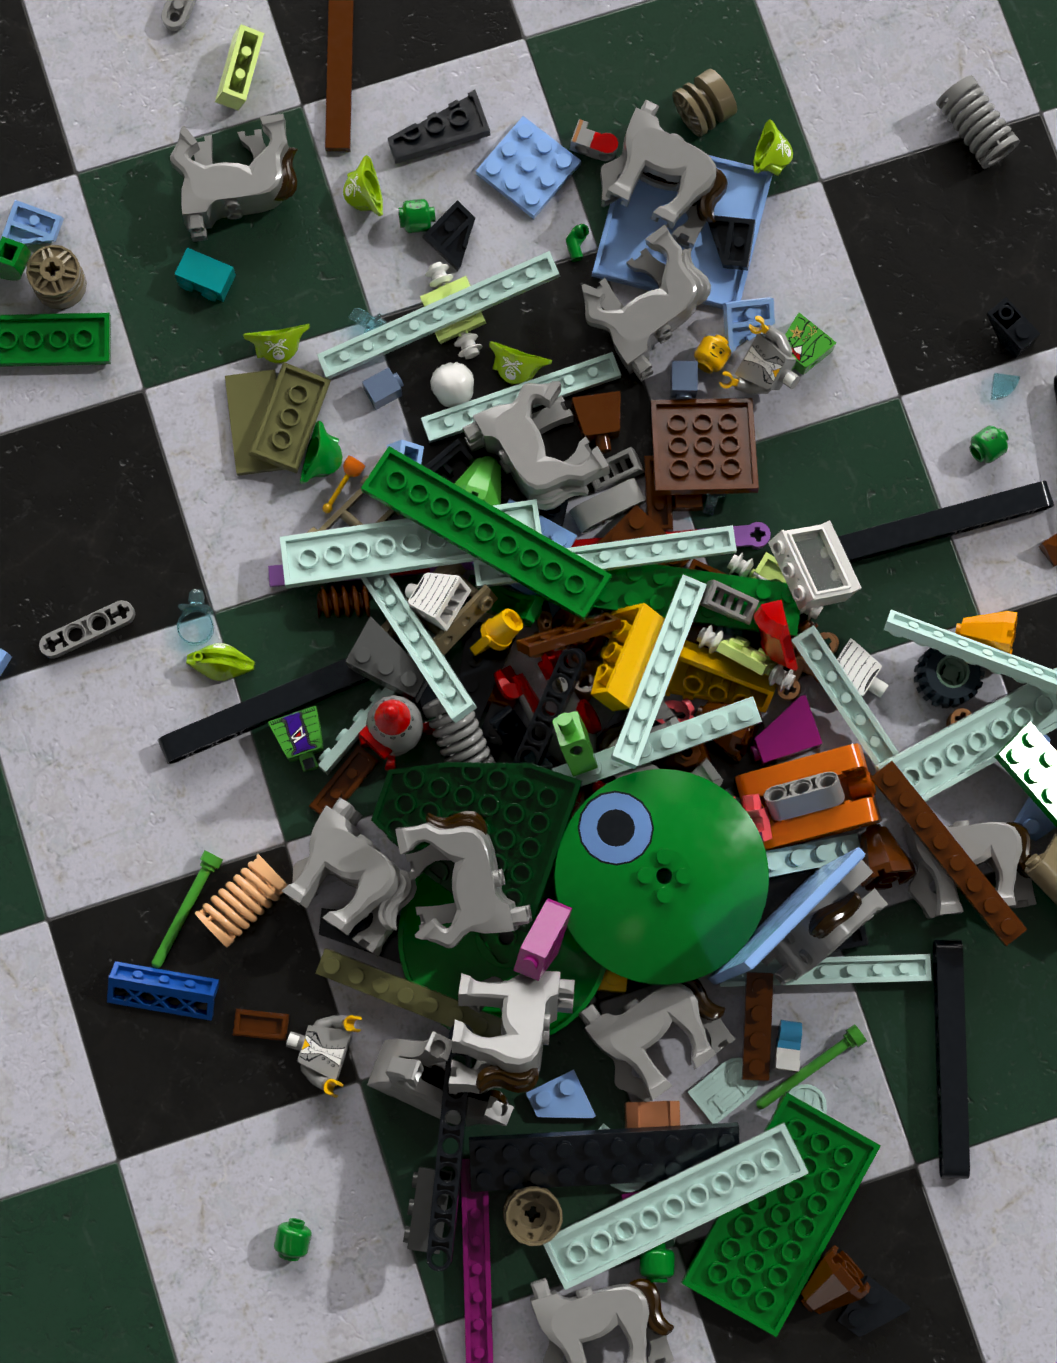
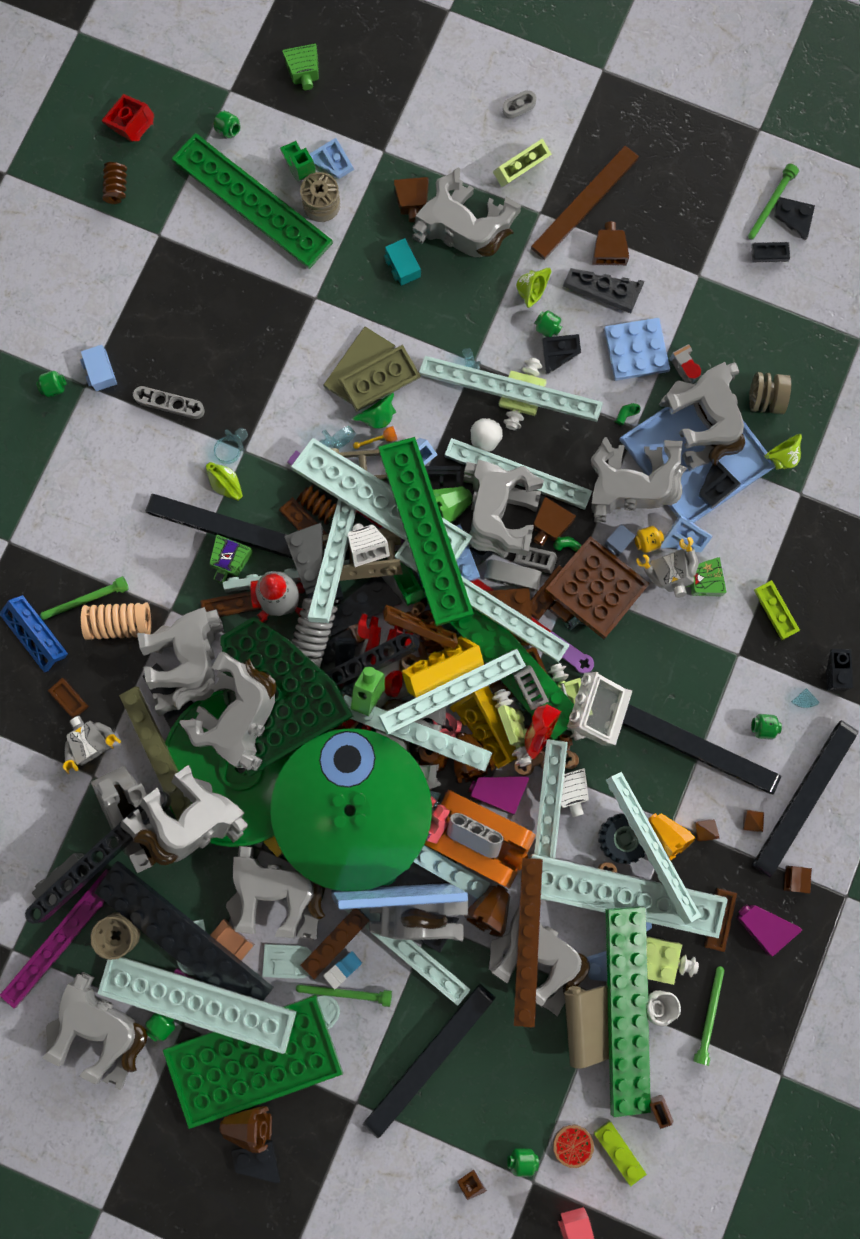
camera: 45 degrees right, 0 degrees up
(153, 197) = (411, 195): none -> reddish brown torso
(277, 345) = (408, 332): lime hat -> none
(305, 518) = (339, 439): none -> clear light blue piece
(333, 632) = (297, 515): none -> reddish brown tile
(383, 388) = (445, 404): sand blue brick -> none
(409, 81) = (611, 246): none -> reddish brown torso
(498, 631) = (384, 592): yellow piece -> none
(516, 365) = (530, 452): lime hat -> none
(543, 940) = (250, 787): slope -> none
(561, 1098) = (192, 885): light blue wing -> none
(632, 425) = (566, 541): none -> green arm
(899, 319) = (776, 610): none -> lime plate
(1020, 597) = (706, 830): none -> reddish brown slope

